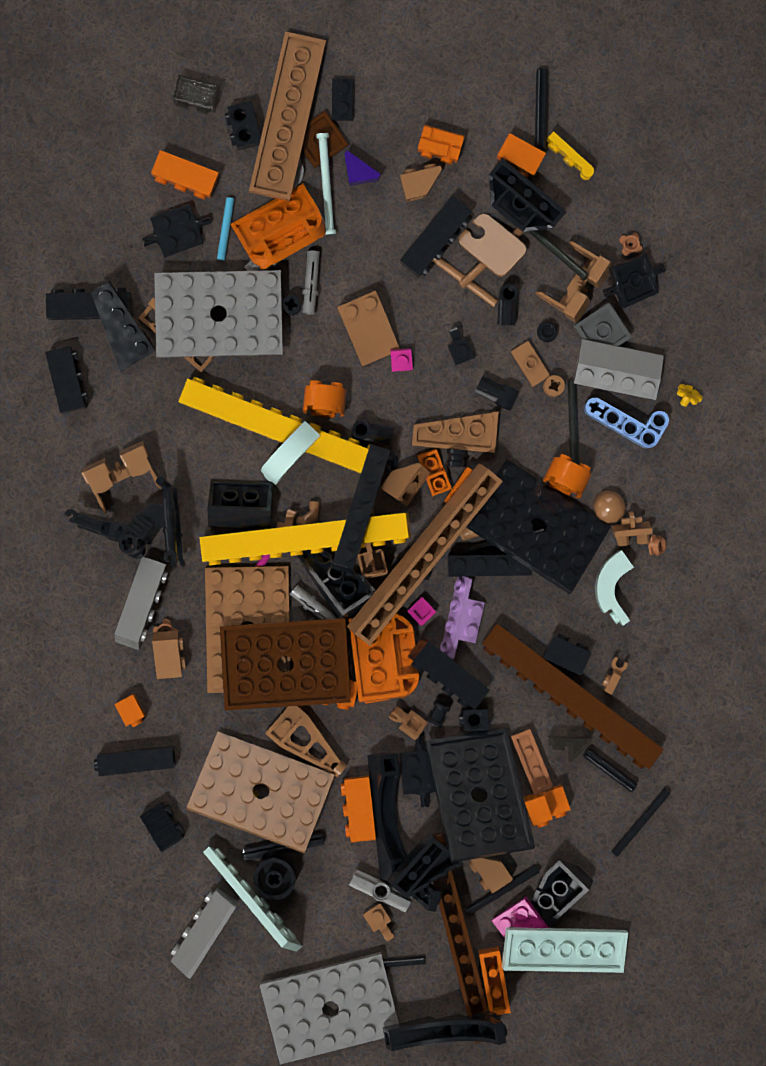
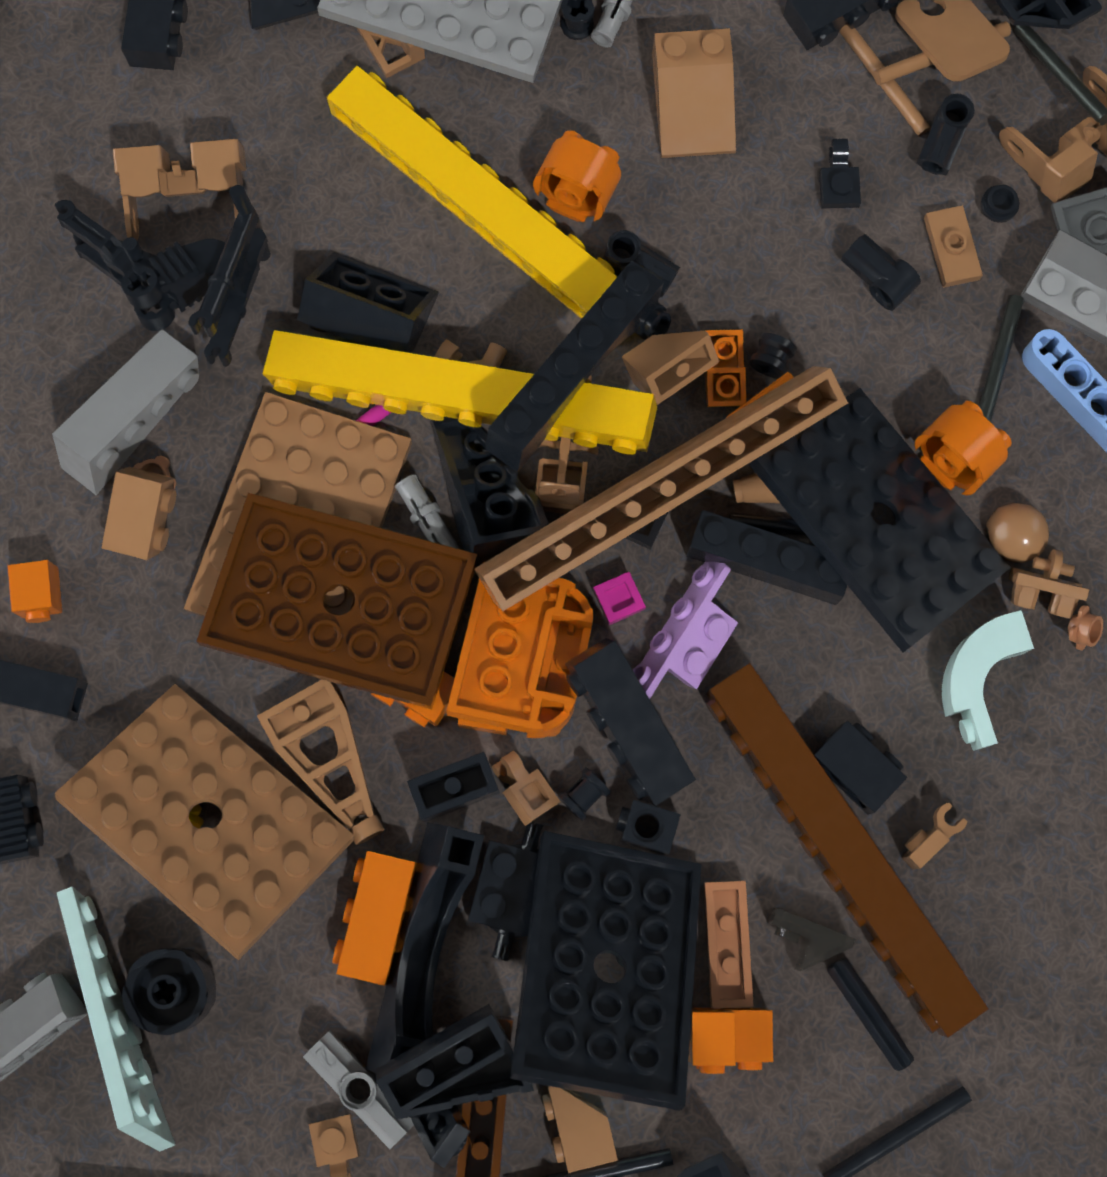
camera: 15 degrees right, 10 degrees down
(275, 848) = (195, 938): black axle -> none
(289, 453) = (480, 234): light aqua arch -> none
(374, 734) = (453, 787): none -> black brick
(401, 359) = (732, 164): dark pink plate -> none
(464, 433) = (818, 325): medium nougat wing -> none
(550, 387) = (978, 301): medium nougat wheel -> none

